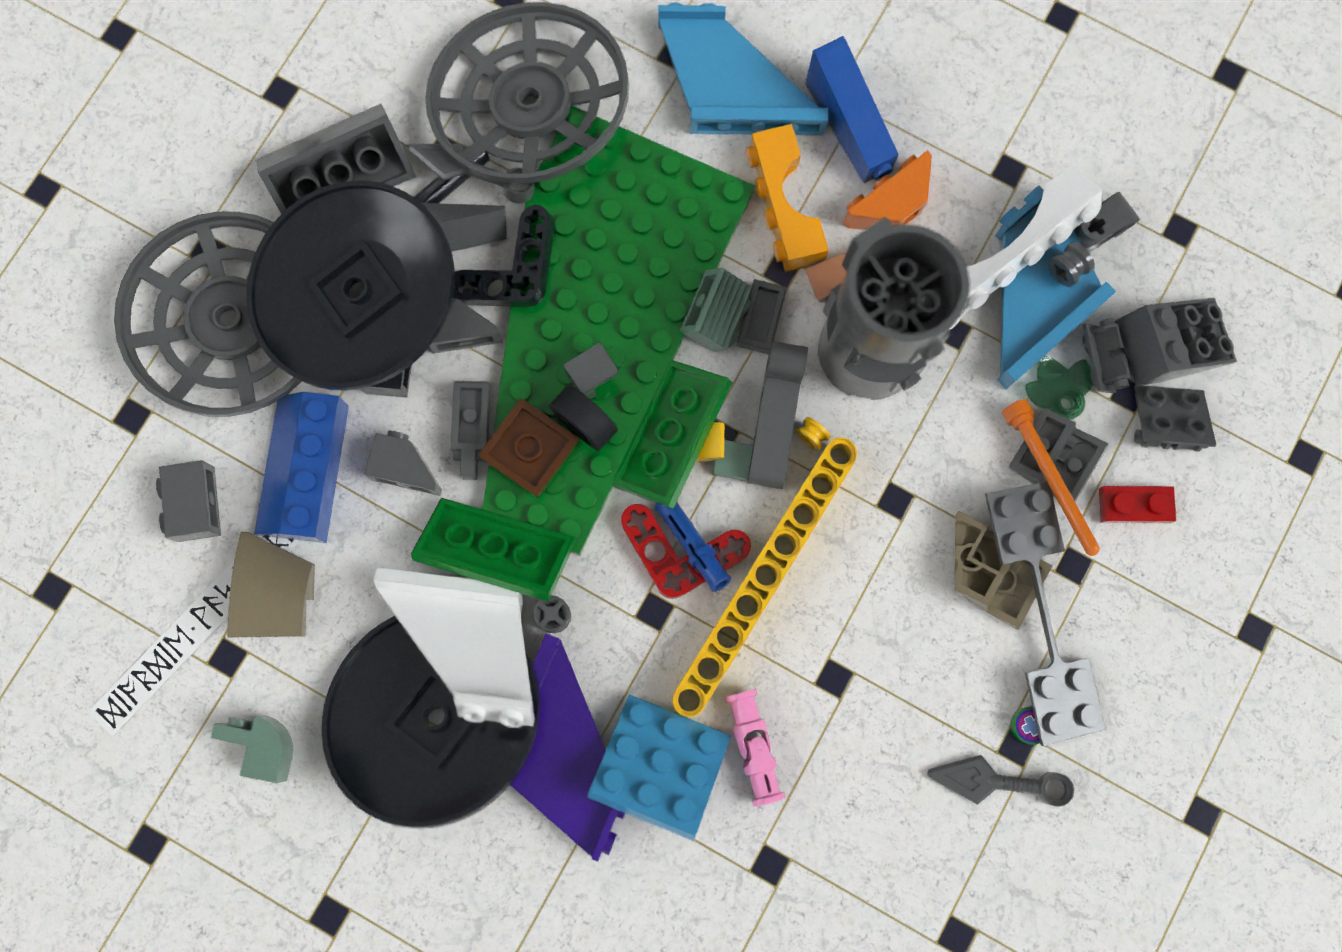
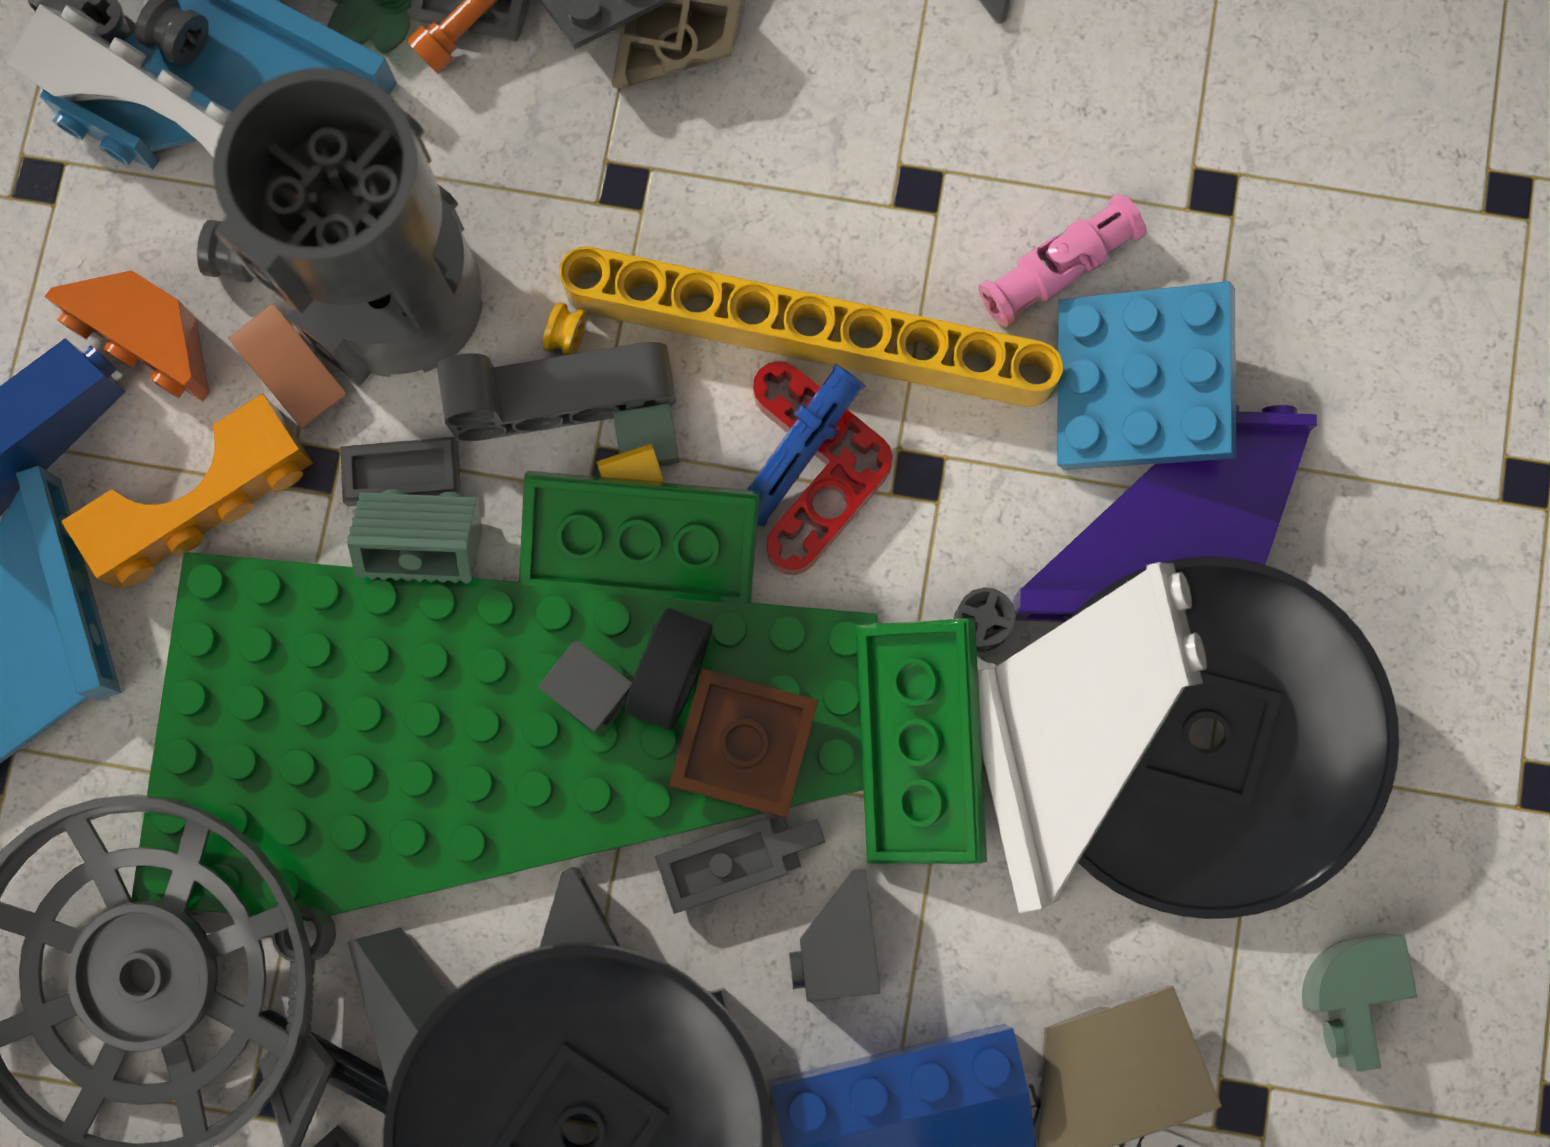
camera: 105 degrees left, 0 degrees up
(521, 273) = (454, 868): black beam -> none

